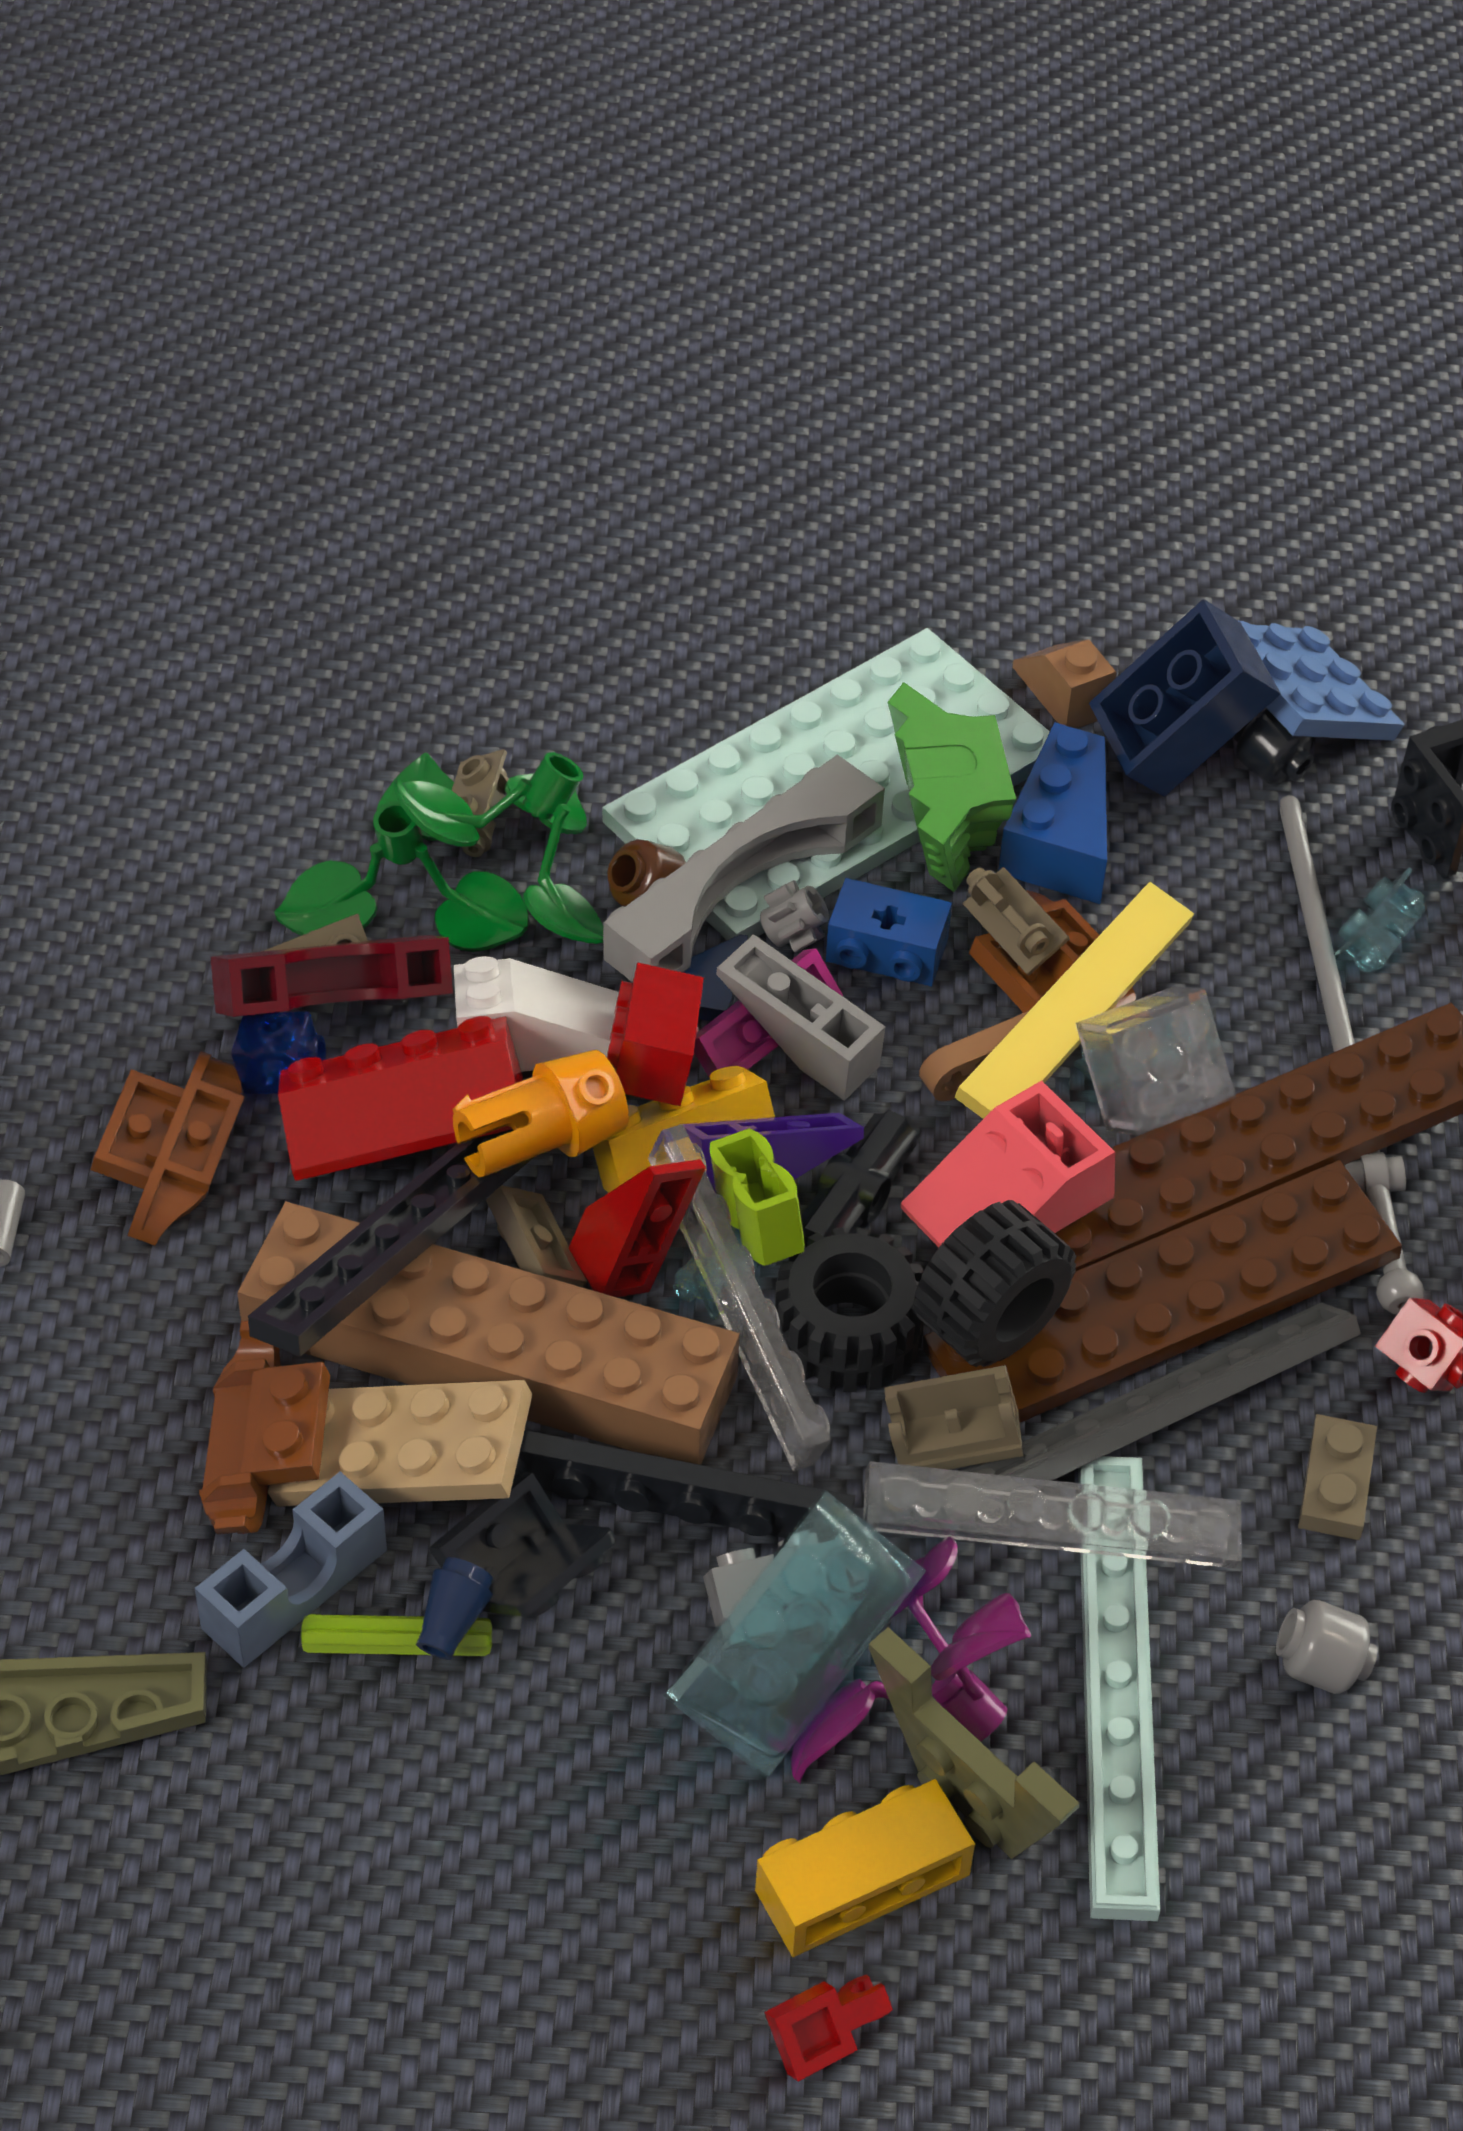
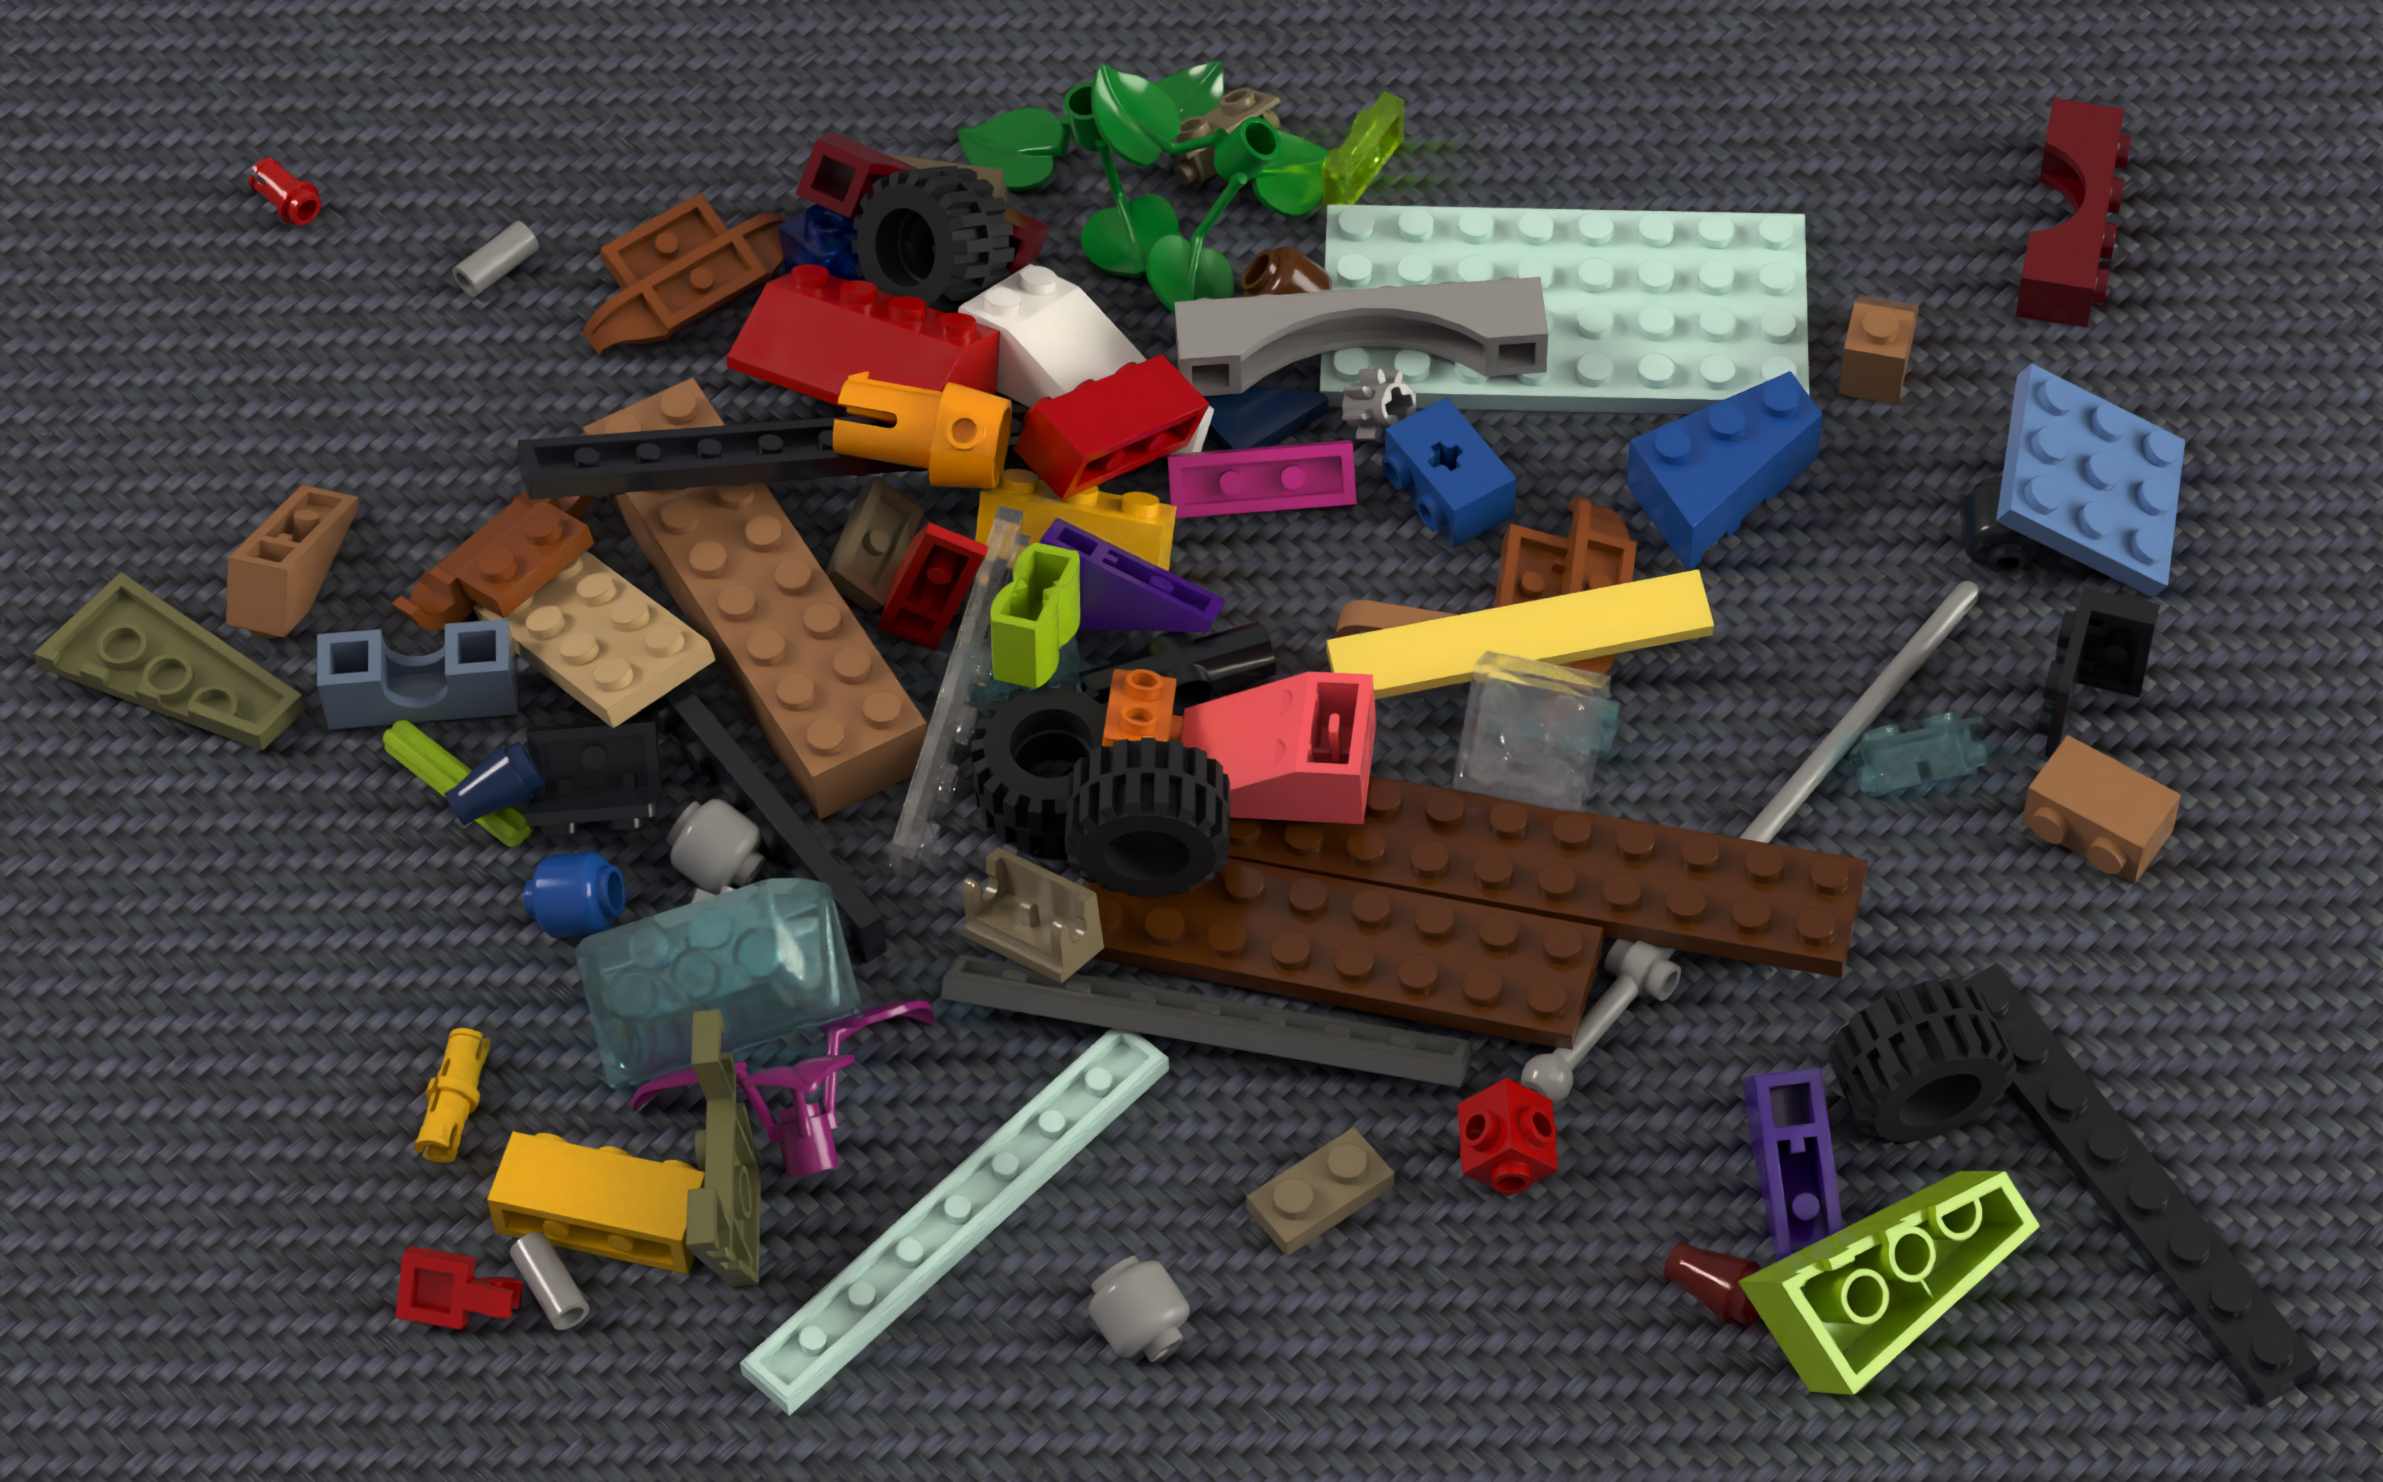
camera: 45 degrees right, 5 degrees up
(79, 1558) = (286, 561): none -> medium nougat slope
(386, 944) = (966, 231): none -> black tyre
(587, 741) = (1370, 144): none -> clear neon green plate
(592, 1650) = (575, 894): none -> blue head
(655, 1875) = (452, 1095): none -> yellow pin
(661, 1538) = (715, 846): none -> light grey head
(805, 1017) = (1275, 495): light grey slope -> none
(883, 1958) = (549, 1280): none -> light grey axle
(894, 1223) = (1141, 707): none -> orange bracket
(953, 779) = (1600, 363): bright green slope -> none
(1013, 918) = (1552, 524): dark tan hinge -> none
(1053, 1515) = (1026, 1045): clear plate -> none
(1064, 493) = (2063, 261): none -> dark red arch
(1184, 698) = (1929, 421): dark blue brick -> none

